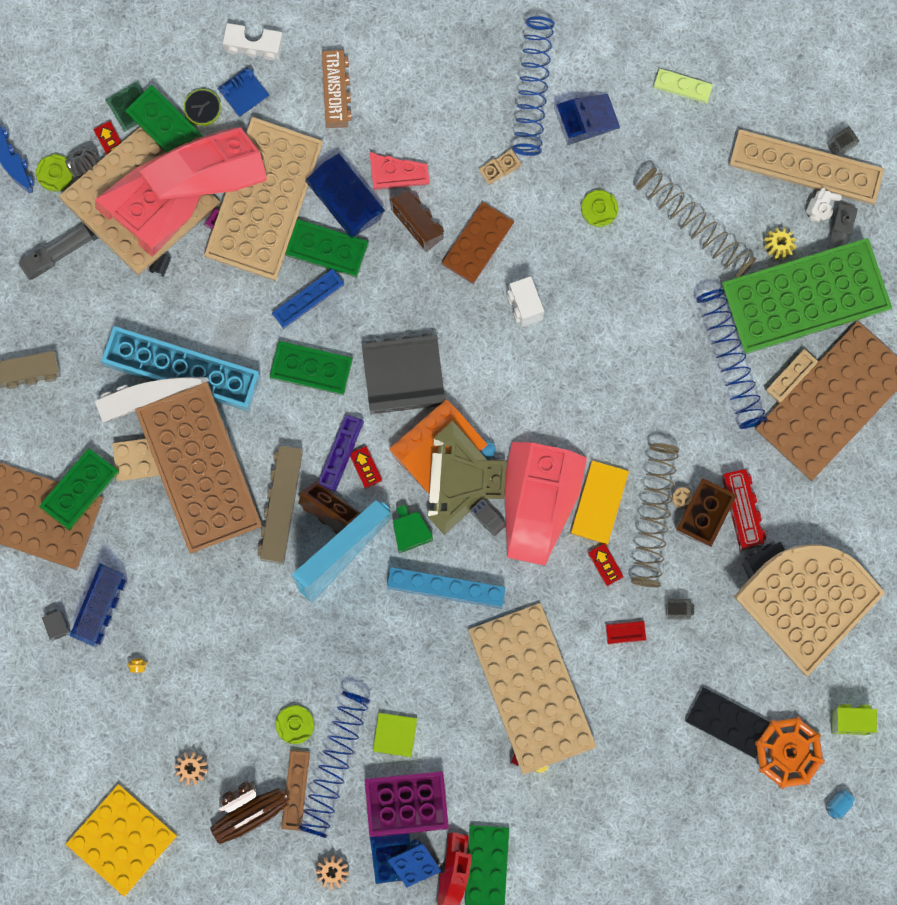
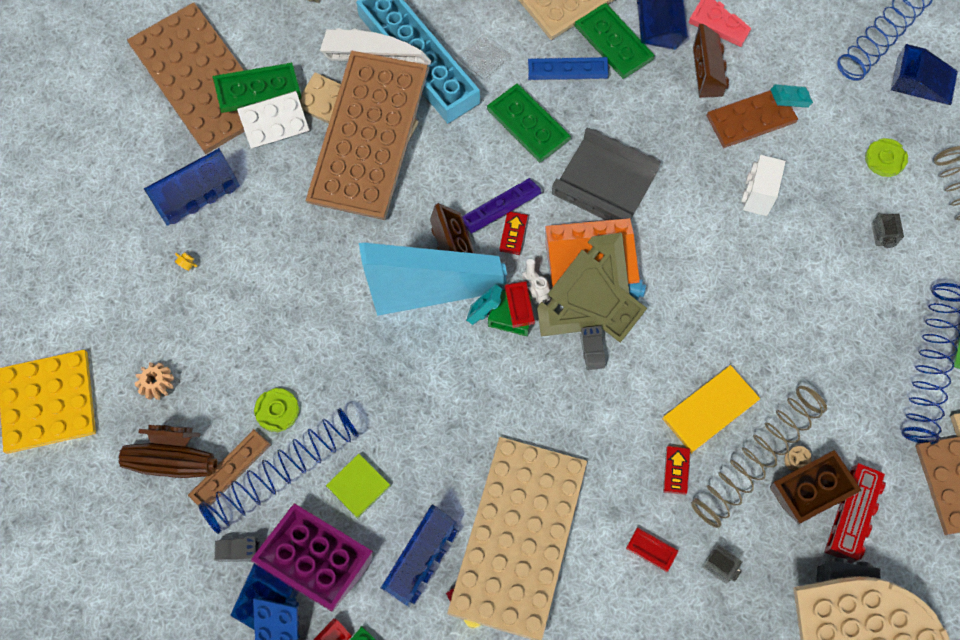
camera: 40 degrees right, 10 degrees down
(55, 624) = (144, 178): dark grey brick -> none
(112, 506) = (273, 119): none -> white plate
(281, 505) = (417, 210): dark tan brick -> none
(325, 870) = (199, 580): light nougat gear -> none
(346, 839) = (236, 550): none -> dark grey leg
(388, 541) = (484, 304): none -> teal plate
(414, 499) = (537, 286): none -> white piece
(414, 524) = (519, 304): none -> red tile
(446, 588) = (507, 384): dark azure brick -> none
(476, 751) = (420, 556): none -> clear blue slope
(497, 206) = (791, 96): none -> teal plate
(500, 167) = (816, 72): tan slope -> none
(539, 497) = (655, 364): coral wedge -> none
(637, 273) = (887, 230): none -> clear smoke brick

